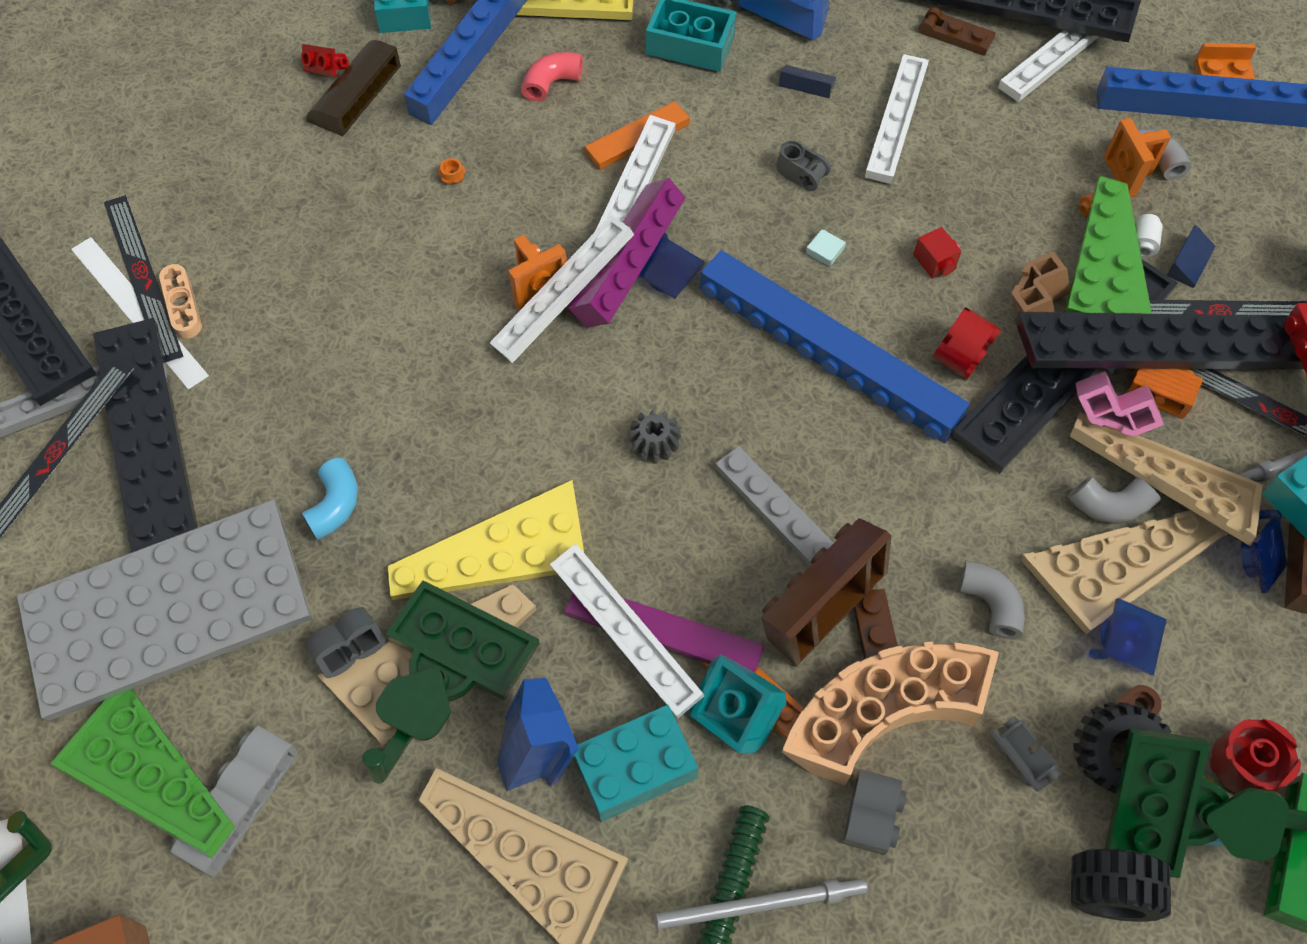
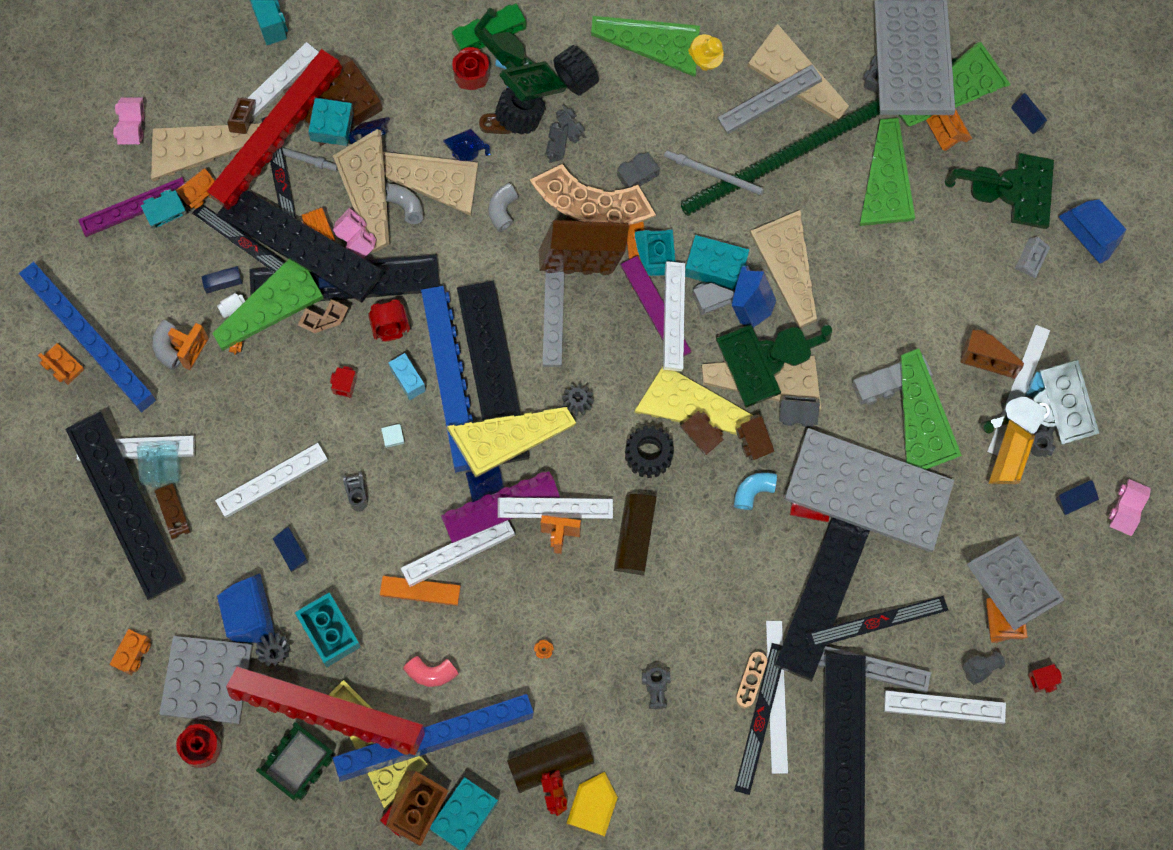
camera: 140 degrees left, 10 degrees up
(275, 86) = (593, 805): none -> yellow tile
(294, 220) = (656, 688): none -> dark grey connector
(380, 555) = (754, 437): none -> reddish brown brick
(445, 346) = (635, 534): none -> dark brown brick
(457, 509) = (702, 432): none -> reddish brown brick
(502, 418) = (645, 466): none -> black tyre
(600, 705) = (711, 297): none -> light grey slope
(697, 310) = (503, 438): none -> light yellow wing
(793, 394) = (489, 353): none -> black plate
(877, 307) = (407, 376): none -> medium azure brick
(1019, 43) = (158, 464): none -> clear light blue bracket
(1048, 813) = (575, 128): none -> dark grey hinge

